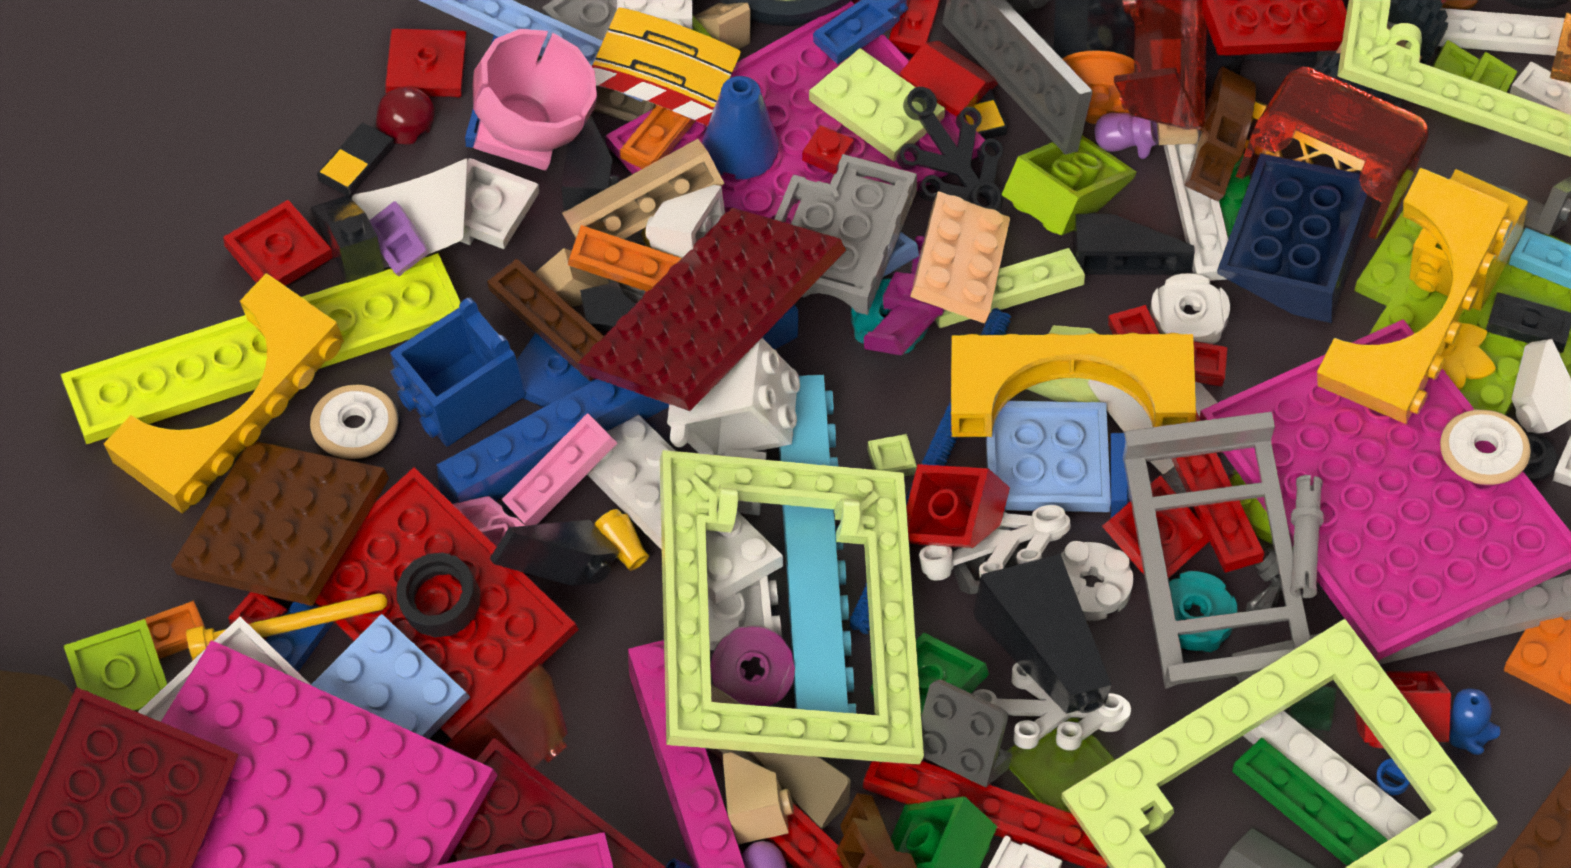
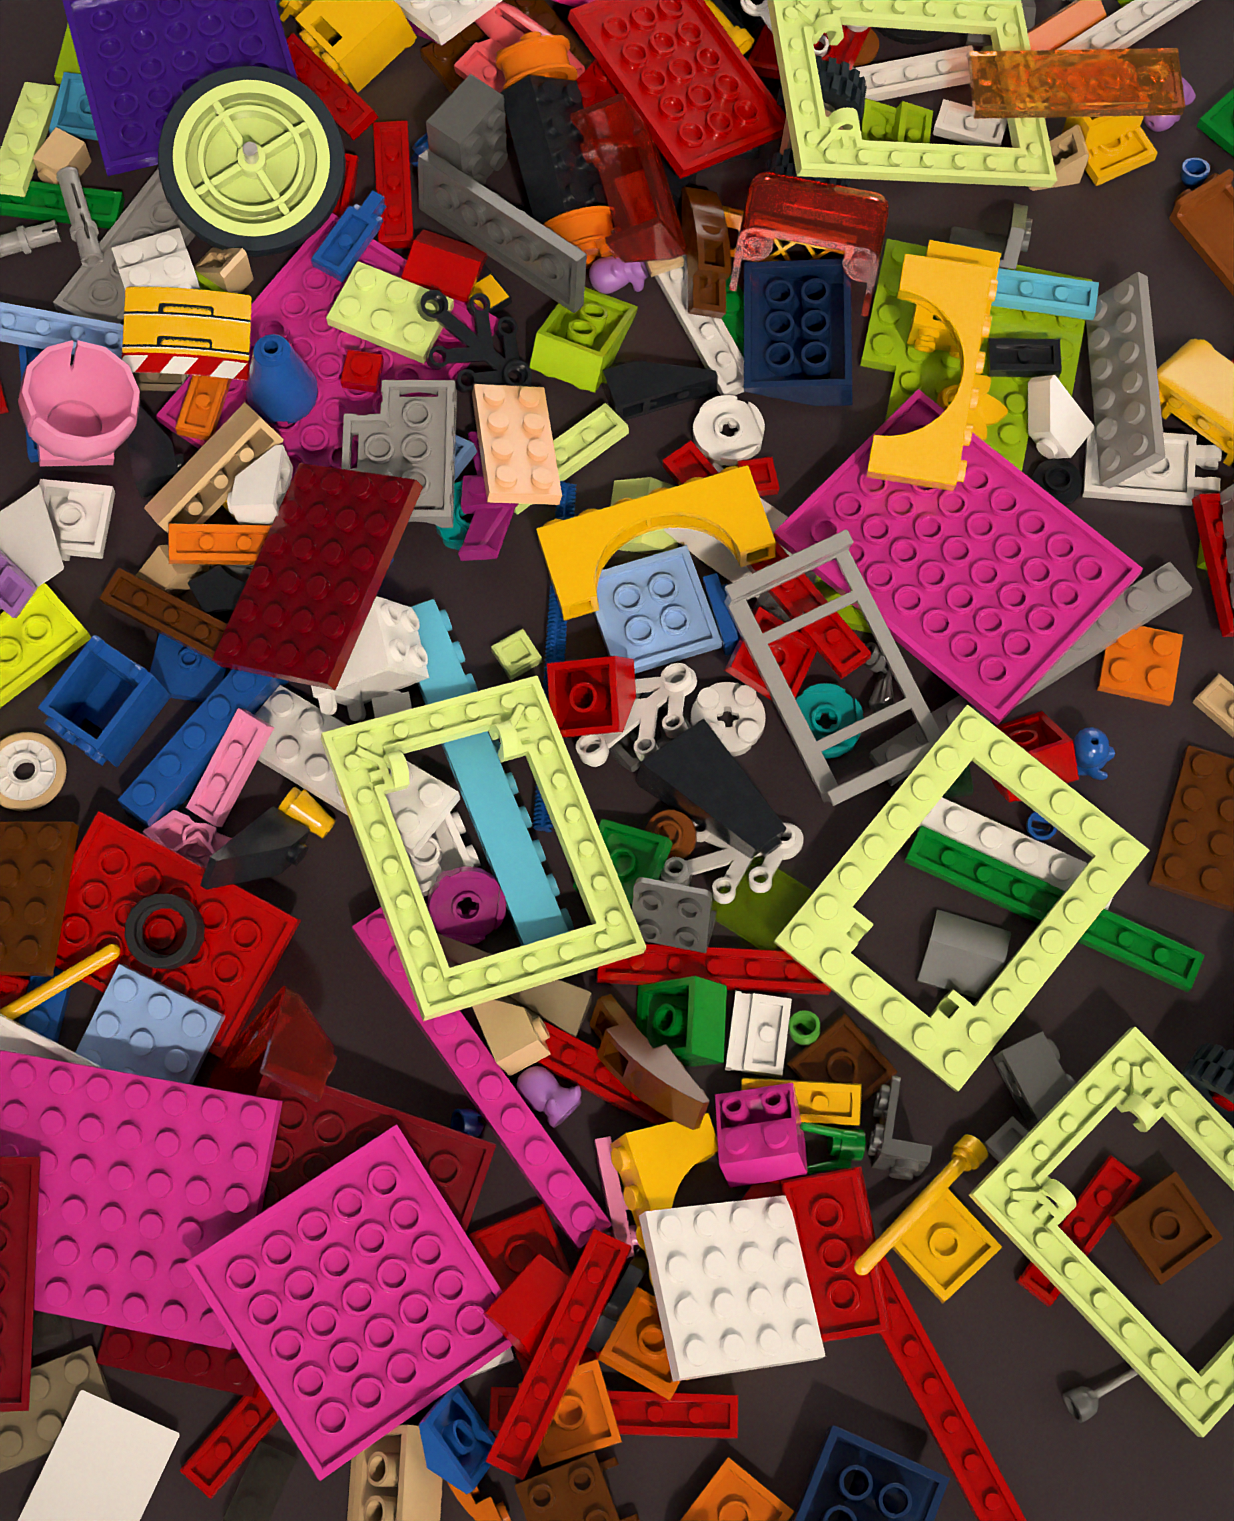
camera: 20 degrees left, 15 degrees up
(1001, 666) = (676, 827): none -> dark orange piece
(1307, 520) = (902, 614): light grey pin -> none
(1485, 468) = (1024, 515): white wheel -> none

